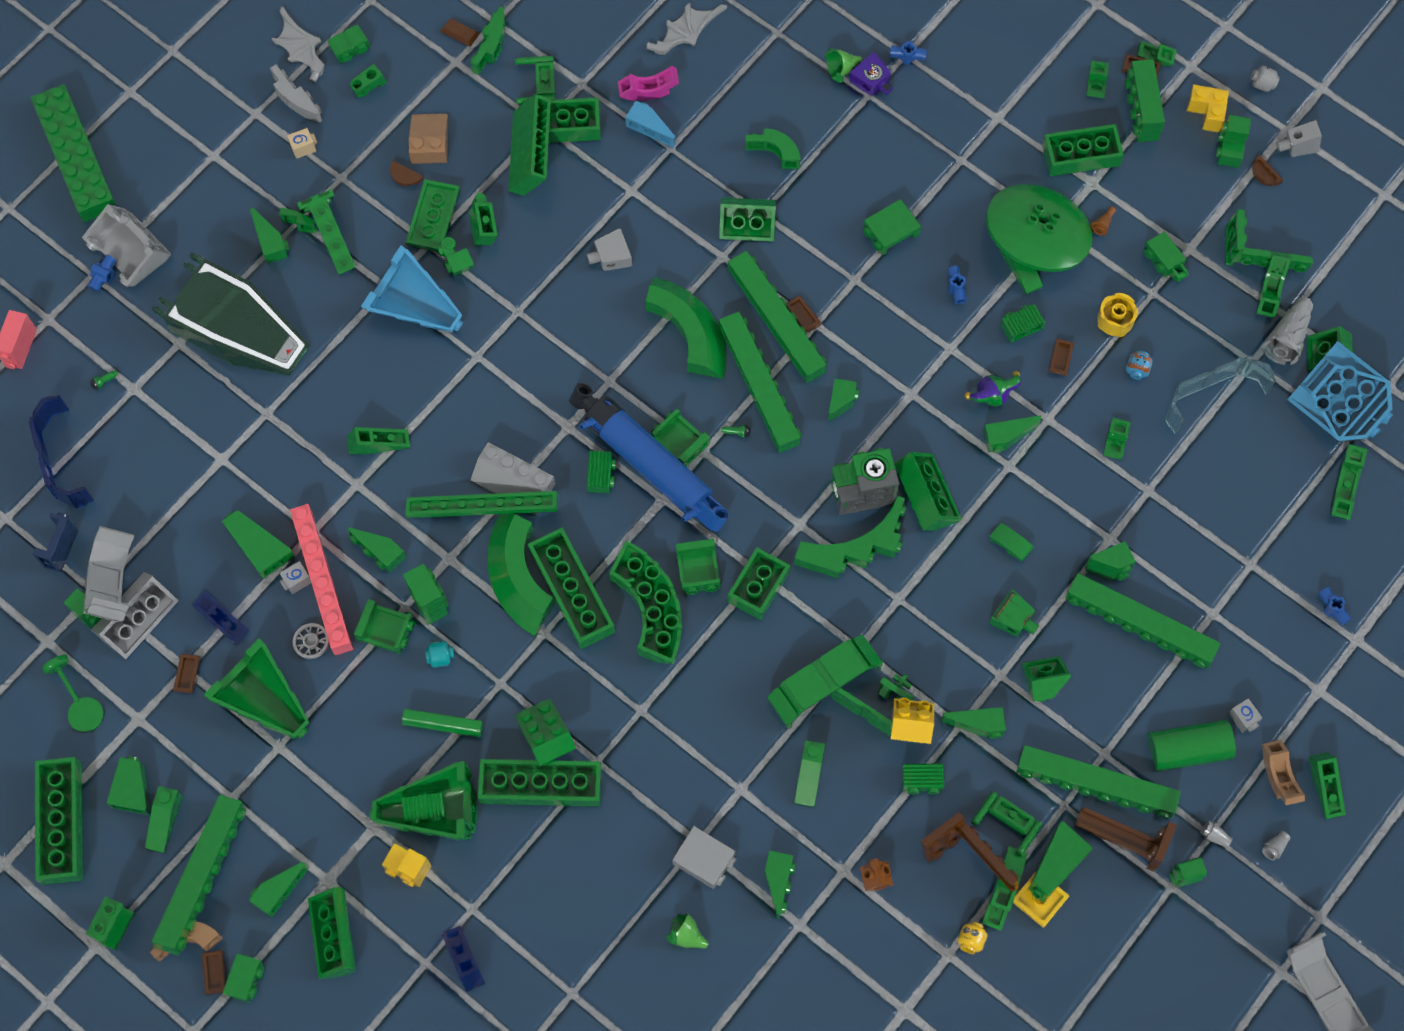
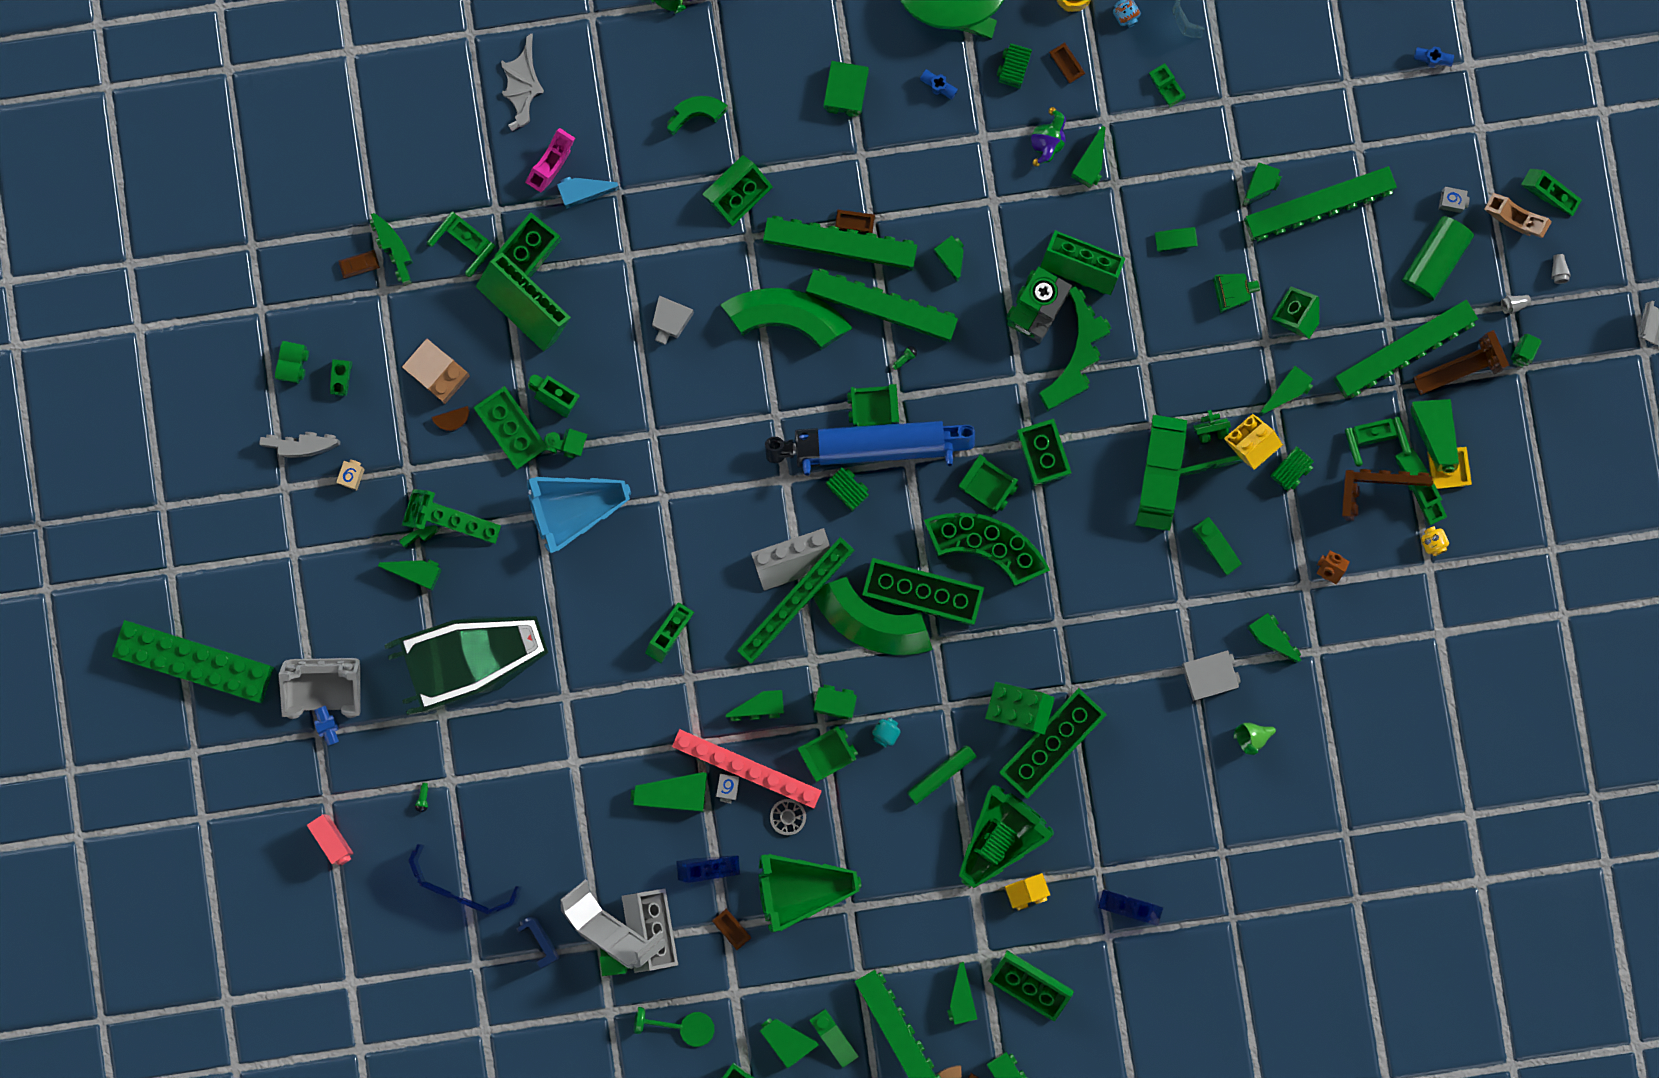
camera: 45 degrees left, 15 degrees up
(300, 46) = (253, 401): light grey animal -> none

